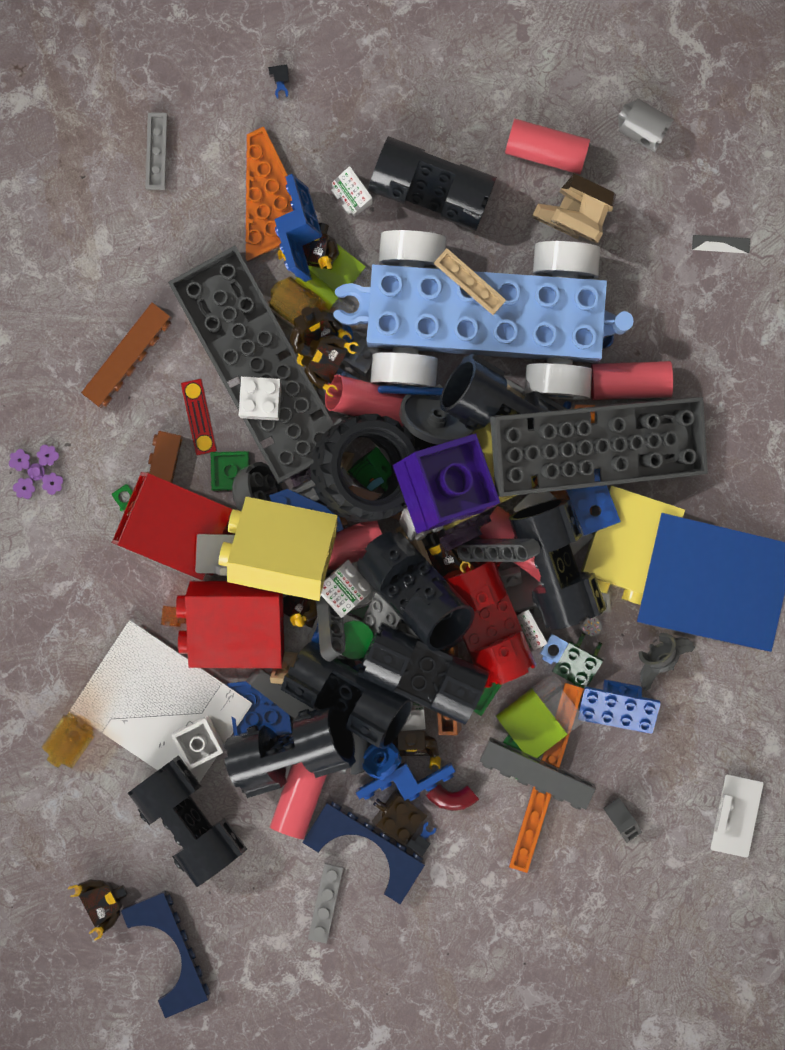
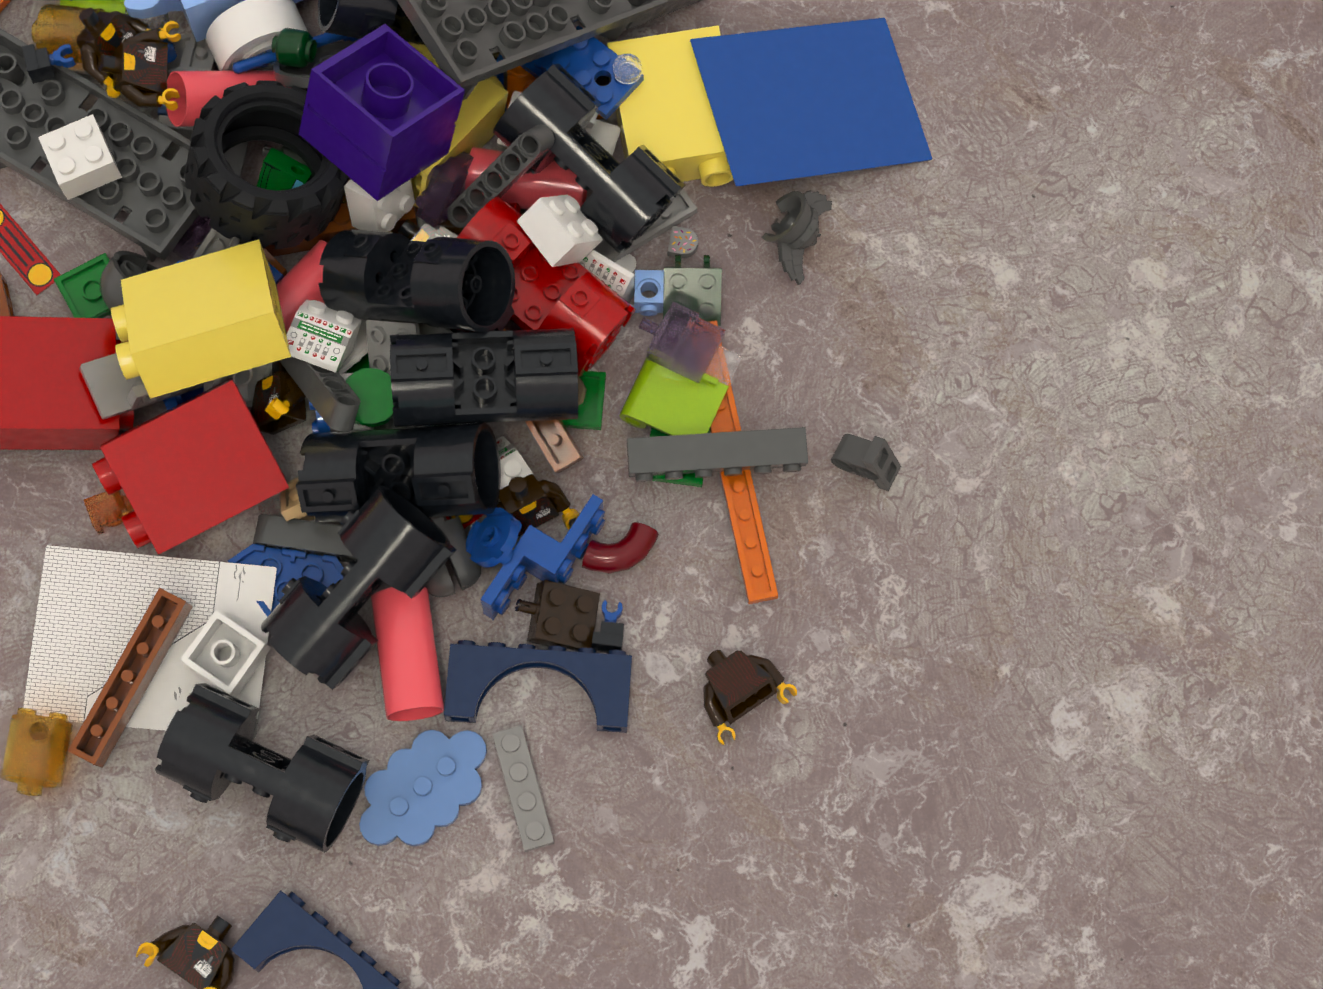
camera: 35 degrees left, 15 degrees down
(139, 727) = (130, 678): none -> dark orange brick
(267, 320) = (40, 62): none -> black piece
(270, 873) = (423, 788): none -> medium blue plate
(420, 397) = (294, 47): none -> dark green head
(475, 913) = (738, 686): none -> dark brown torso
(515, 603) = (560, 230): none -> white brick
(554, 698) = (683, 342): none -> plate
(611, 516) = (627, 68): none -> clear tile
(620, 707) = (779, 321): bracket -> none
(736, 816) = (1011, 380): white bracket -> none

